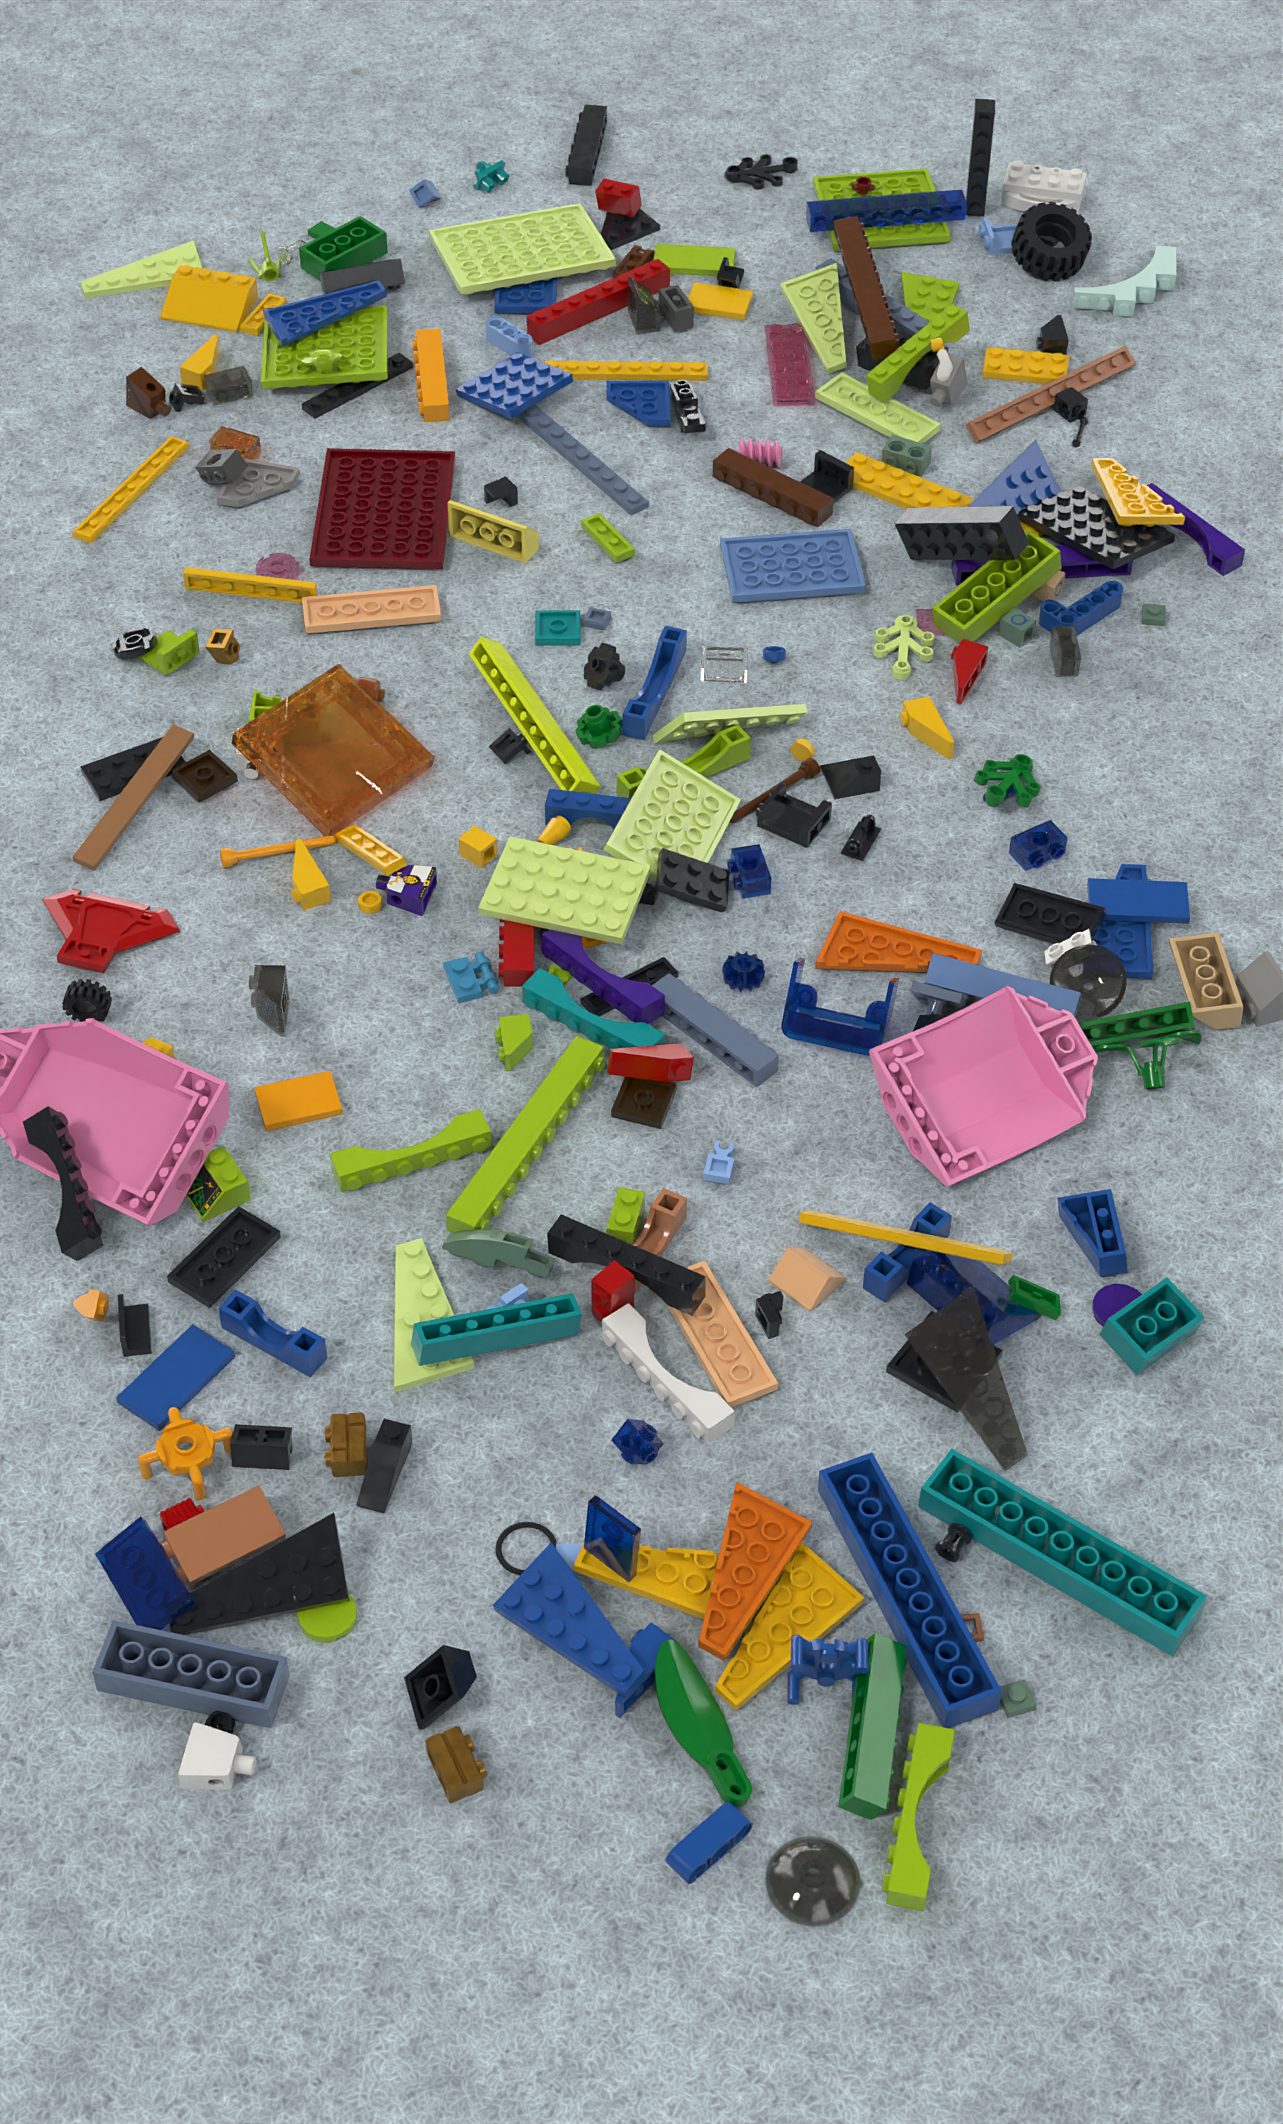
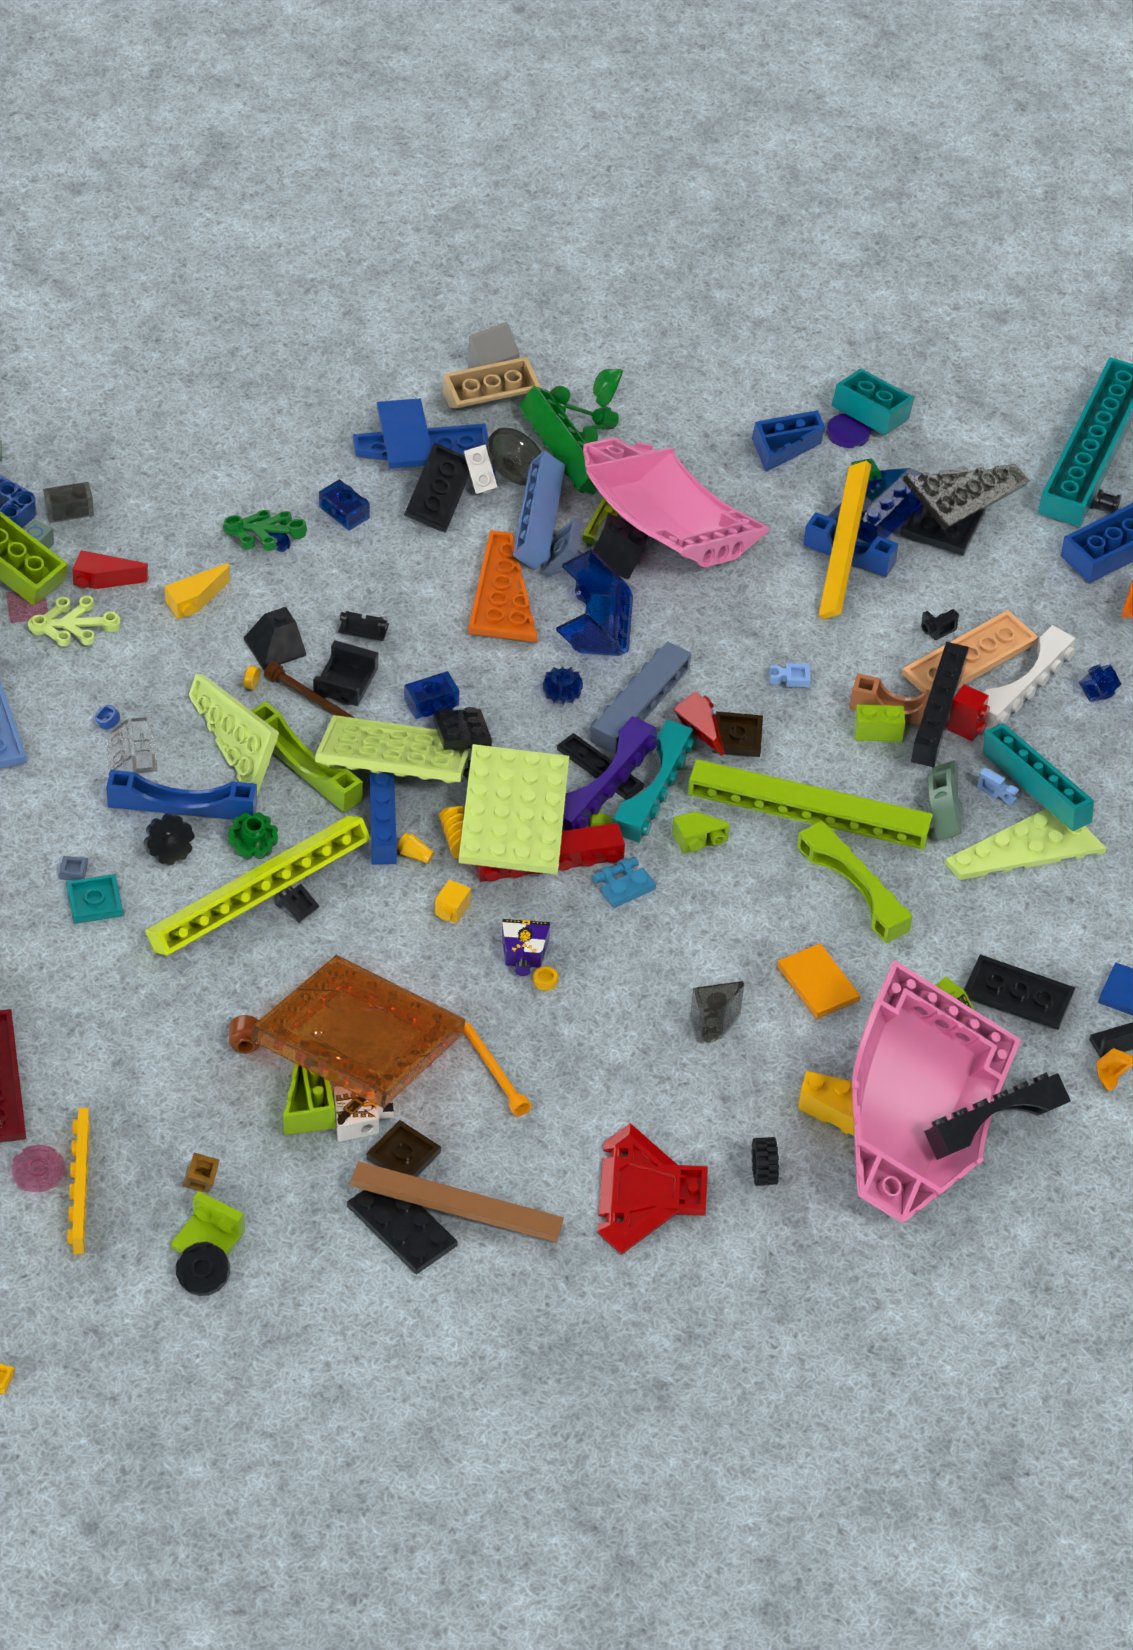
camera: 105 degrees left, 0 degrees up
(248, 1321) = (1094, 931): blue arch -> none
(309, 884) = (535, 1029): yellow slope -> none
(370, 849) = (486, 979): yellow tile -> none
(371, 609) = (99, 1063): light nougat plate -> none
(805, 1277) = (891, 608): light nougat slope -> none

